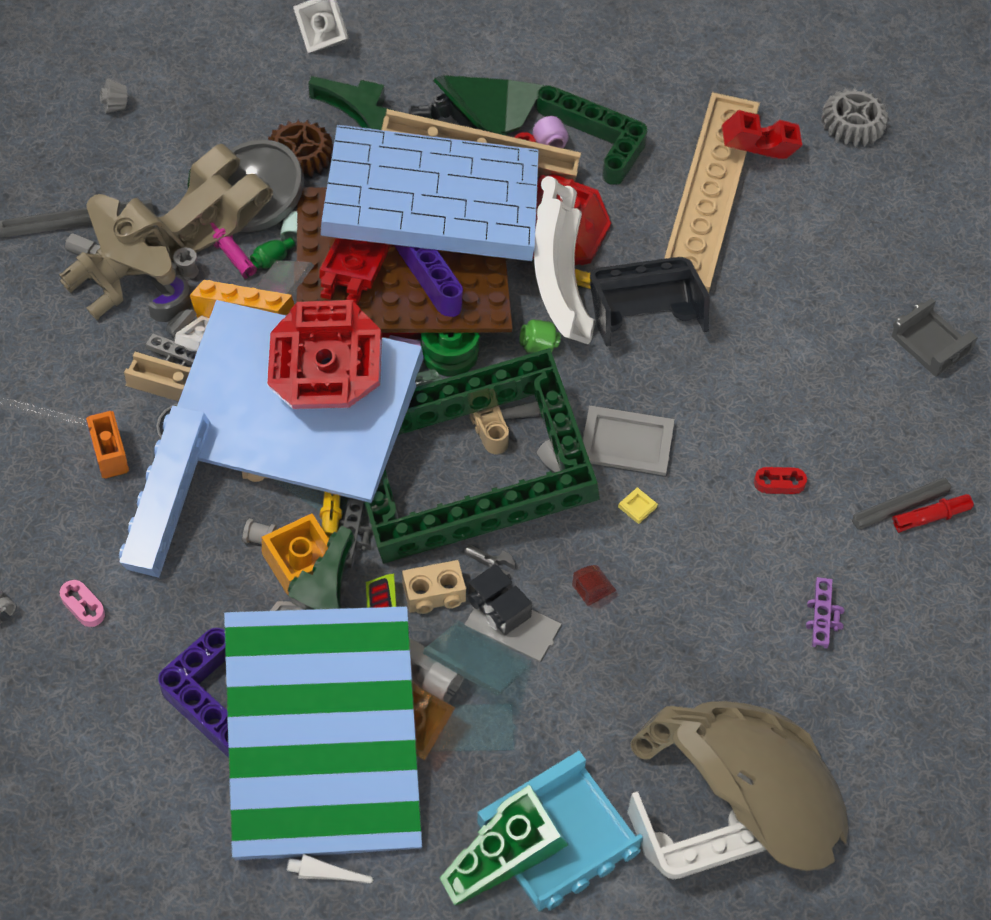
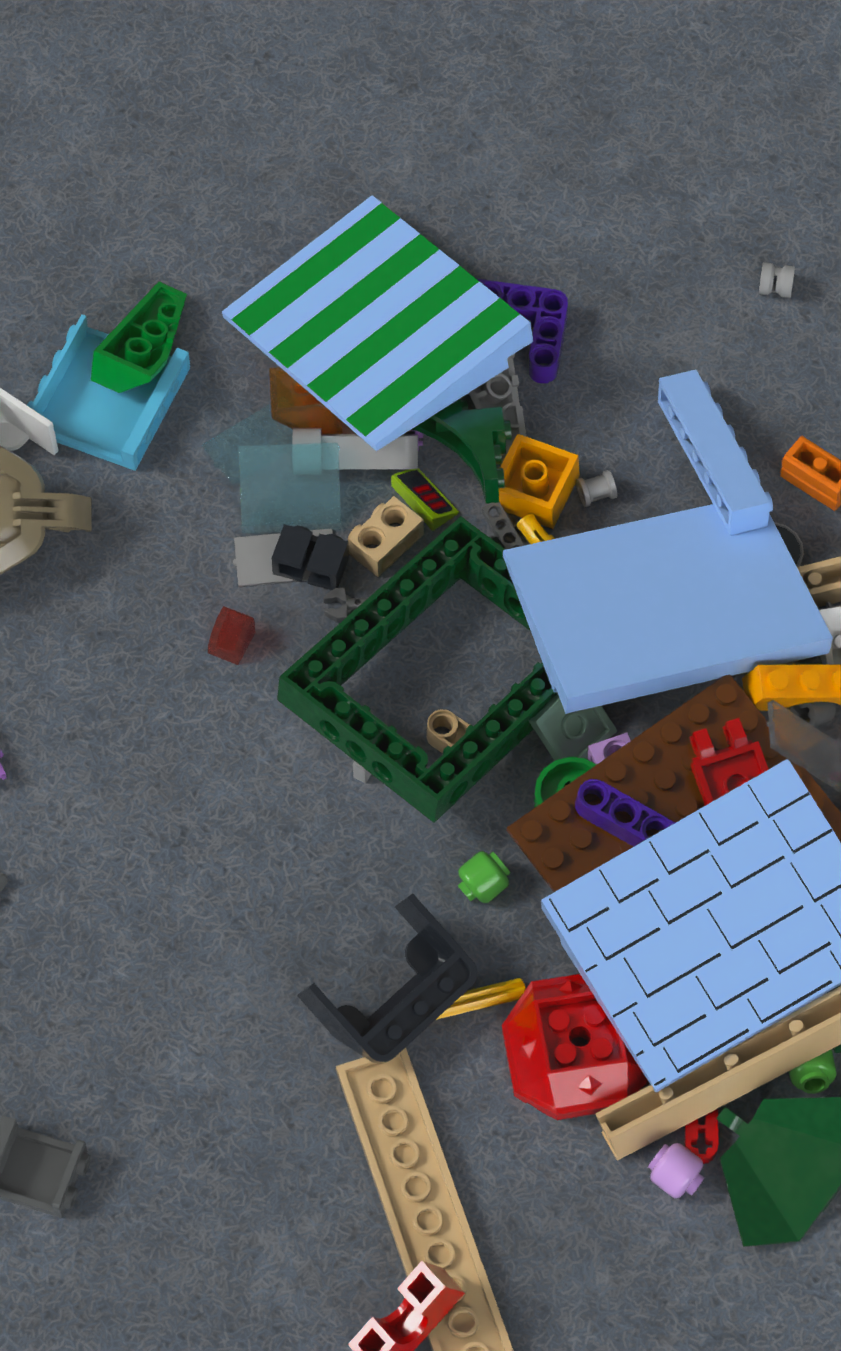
camera: 150 degrees right, 5 degrees up
(77, 607) = (702, 332): bright pink beam -> none
(315, 869) = (286, 251): white piece -> none
(320, 332) = (645, 606): red piece -> none
(554, 261) = (511, 936): white windscreen -> none
(601, 122) = (626, 1224): dark green beam -> none
(628, 440) = (304, 819): light grey piece -> none
(637, 505) = (244, 753): light yellow tile -> none
(780, 480) = (113, 879): red beam -> none

